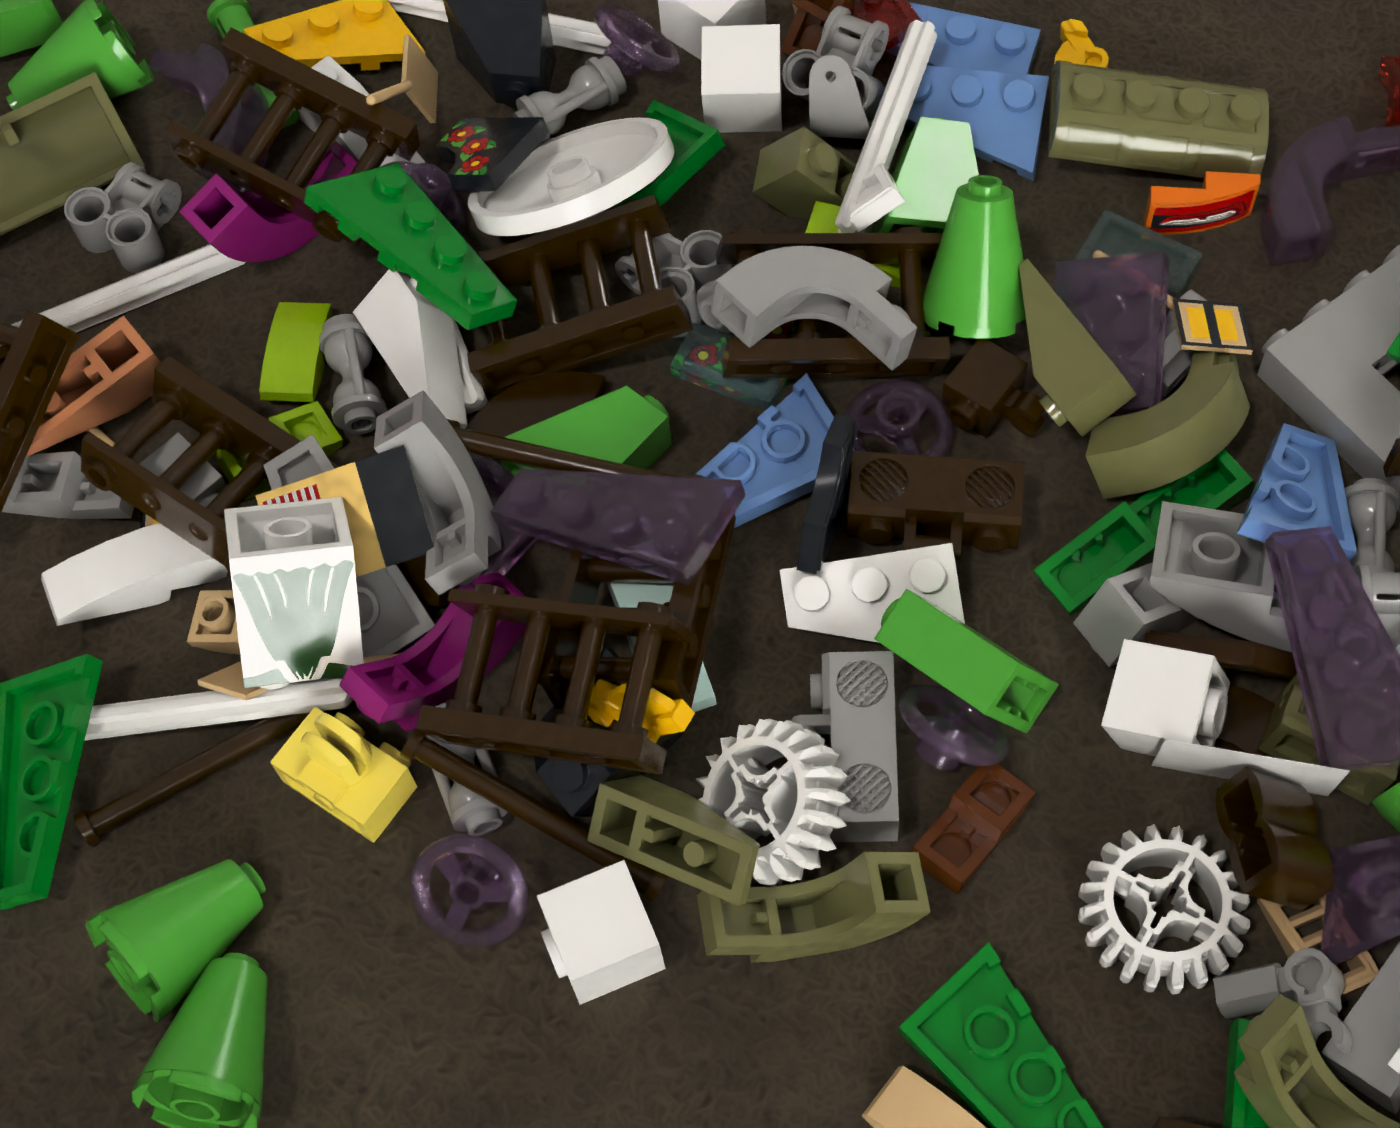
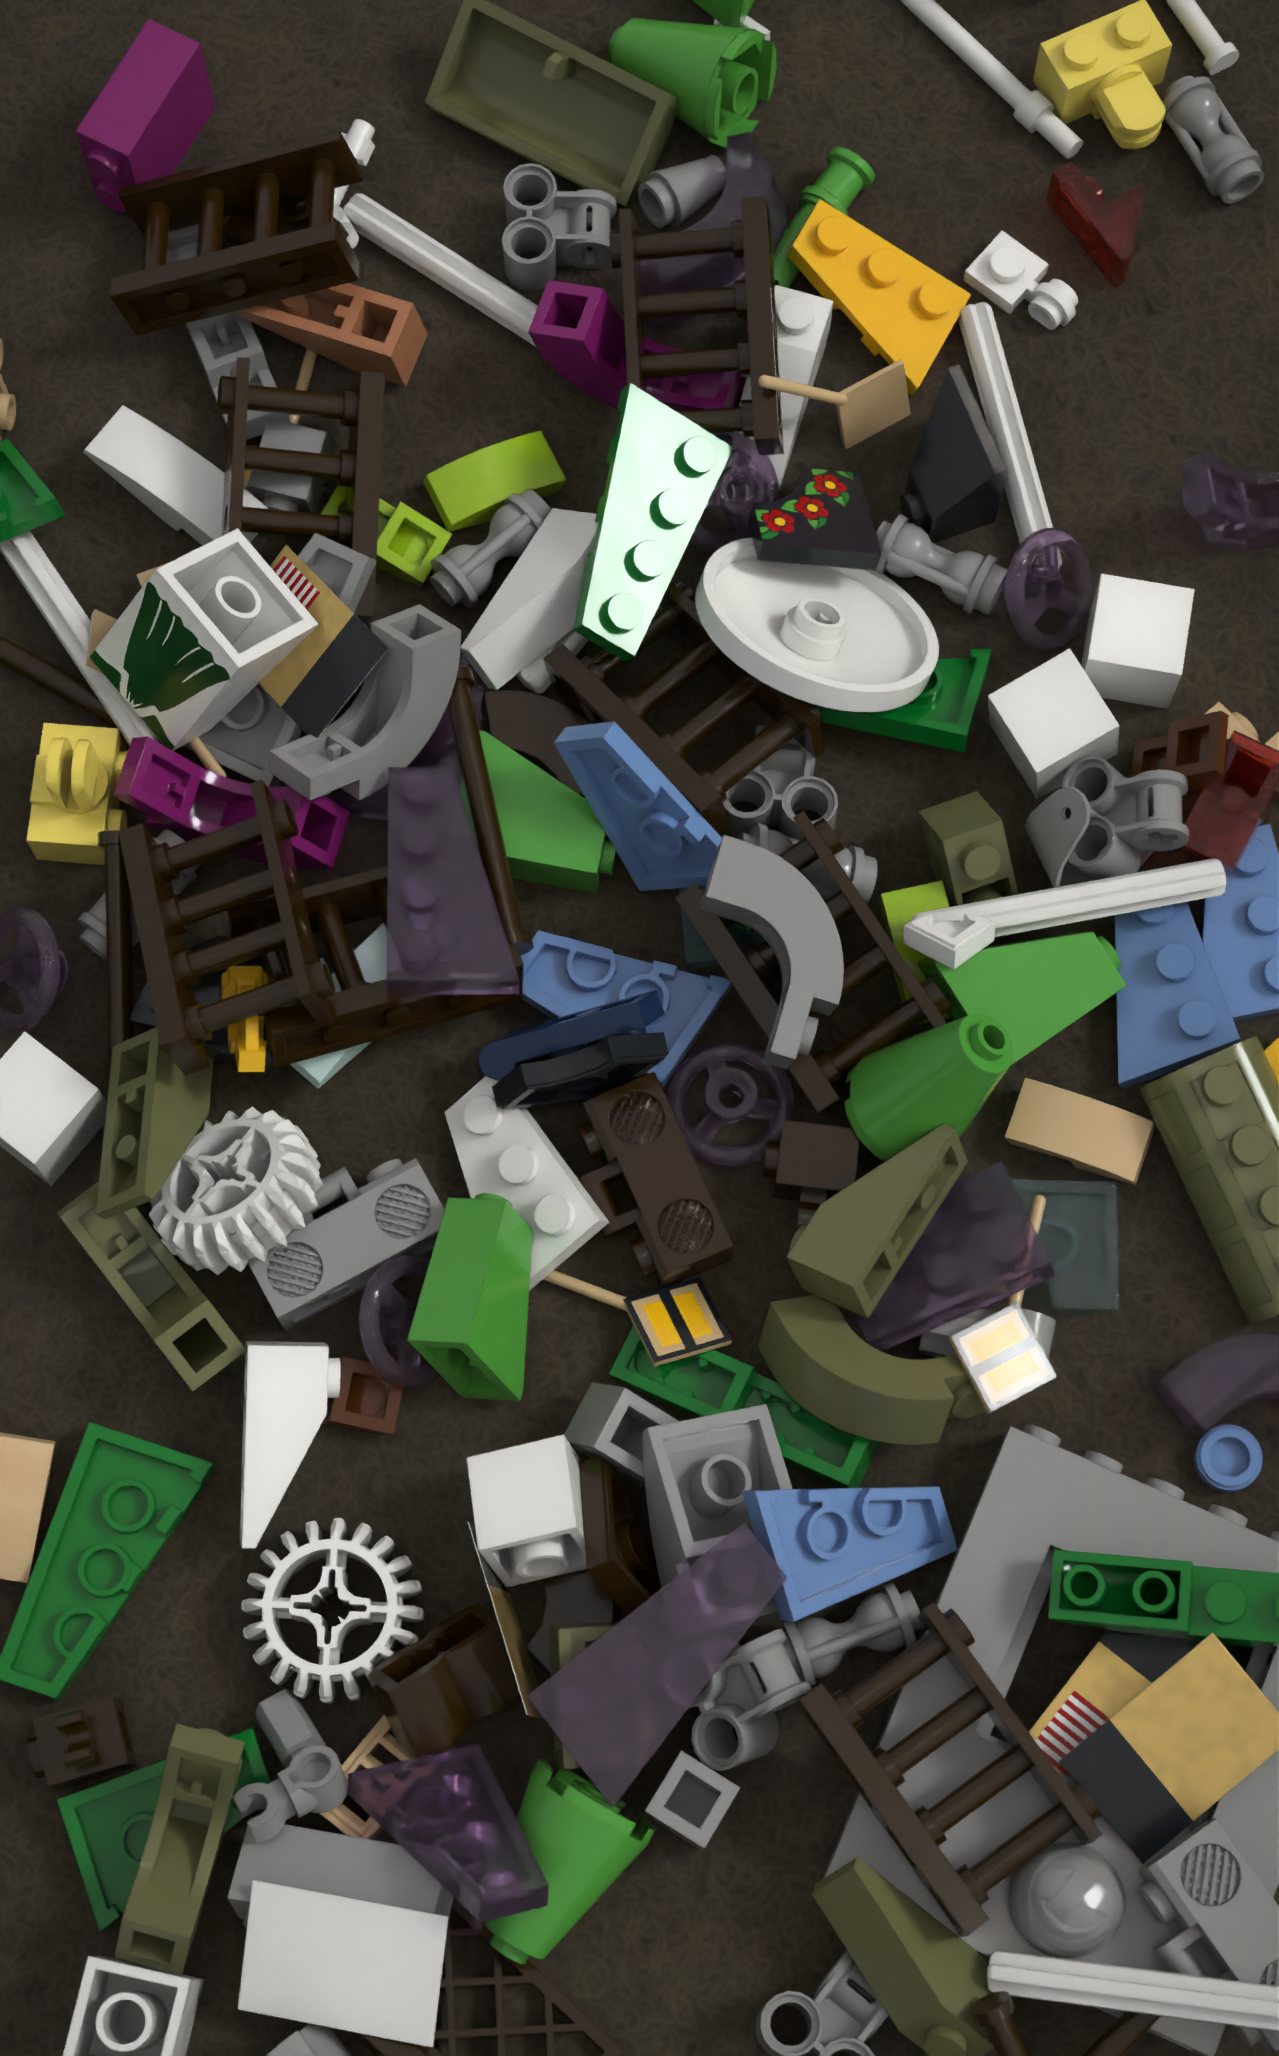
camera: 55 degrees right, 10 degrees up
(159, 110) = (681, 190): none -> light grey cone
(645, 350) = (641, 811): none -> medium blue wing
(787, 493) = (569, 1033): none -> dark blue plate
(988, 868) = (281, 1415): none -> white slope
(1045, 545) = (669, 1320): none -> piece
(1057, 208) = (1080, 1130): none -> tan slope
(1219, 202) = (1186, 1293): slope -> none
(1351, 242) = (1228, 1458): none -> medium blue tile

